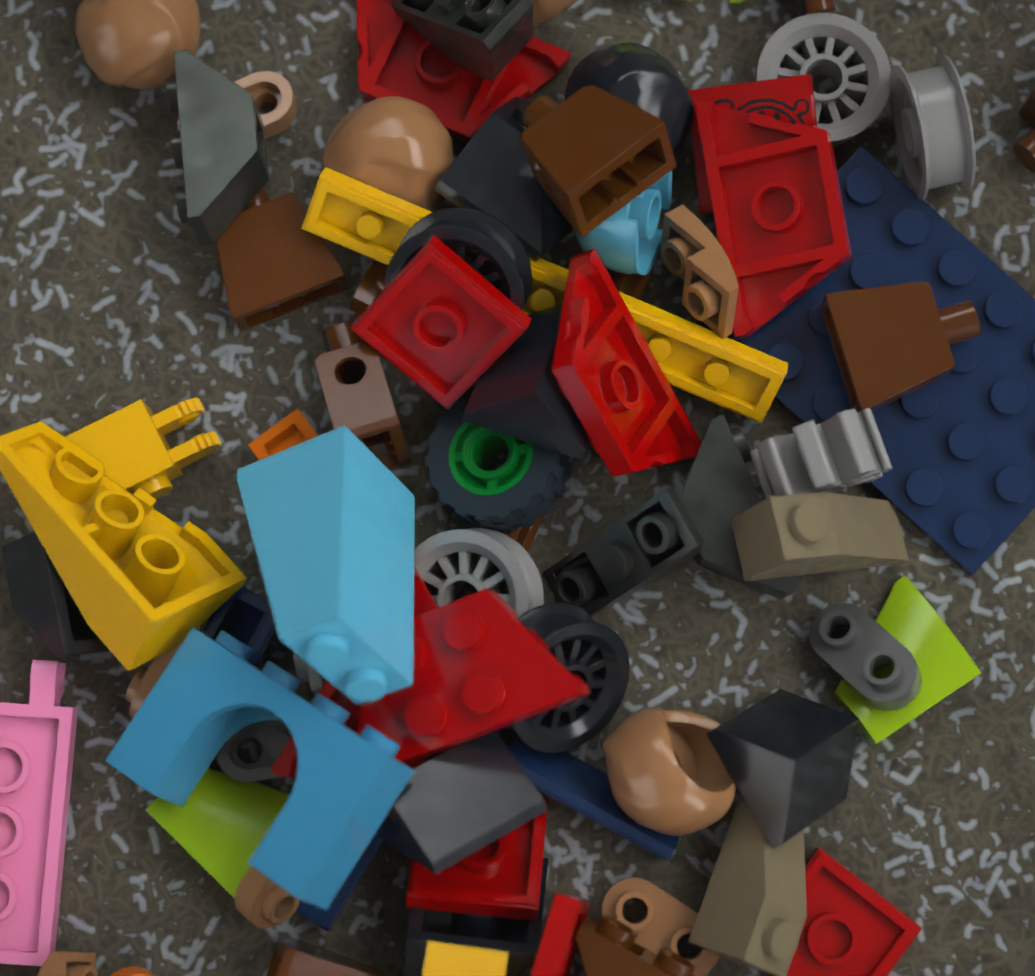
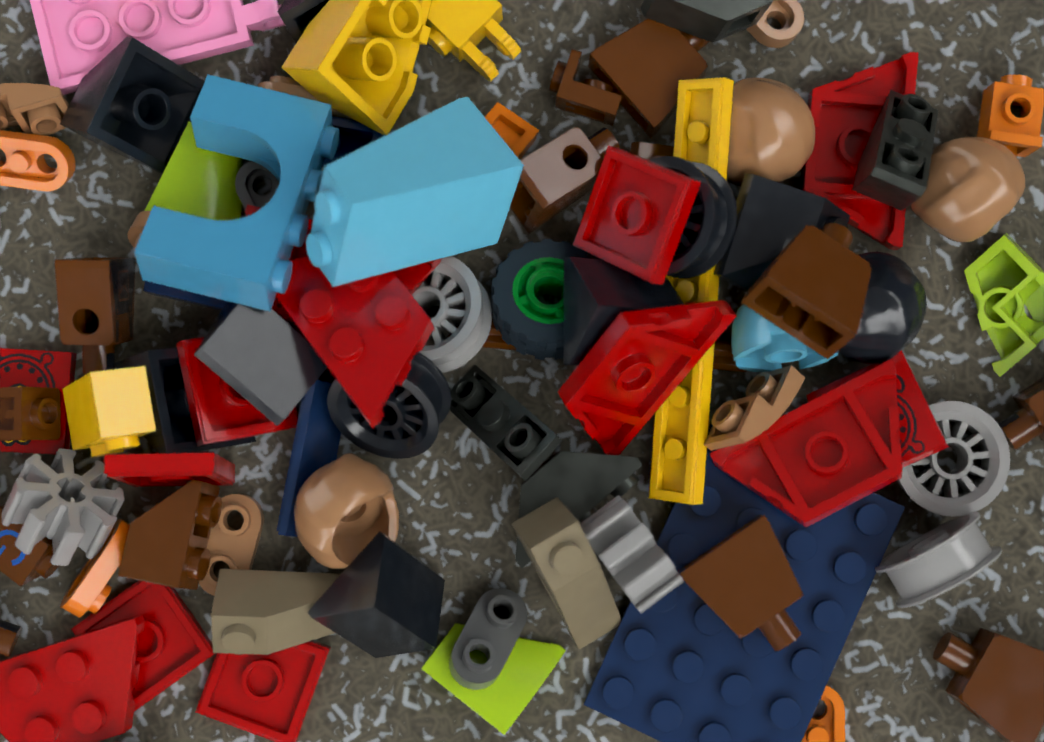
camera: 70 degrees right, 5 degrees up
(103, 867) = (135, 104): none -> black slope
(282, 340) = (587, 99): none -> reddish brown bracket

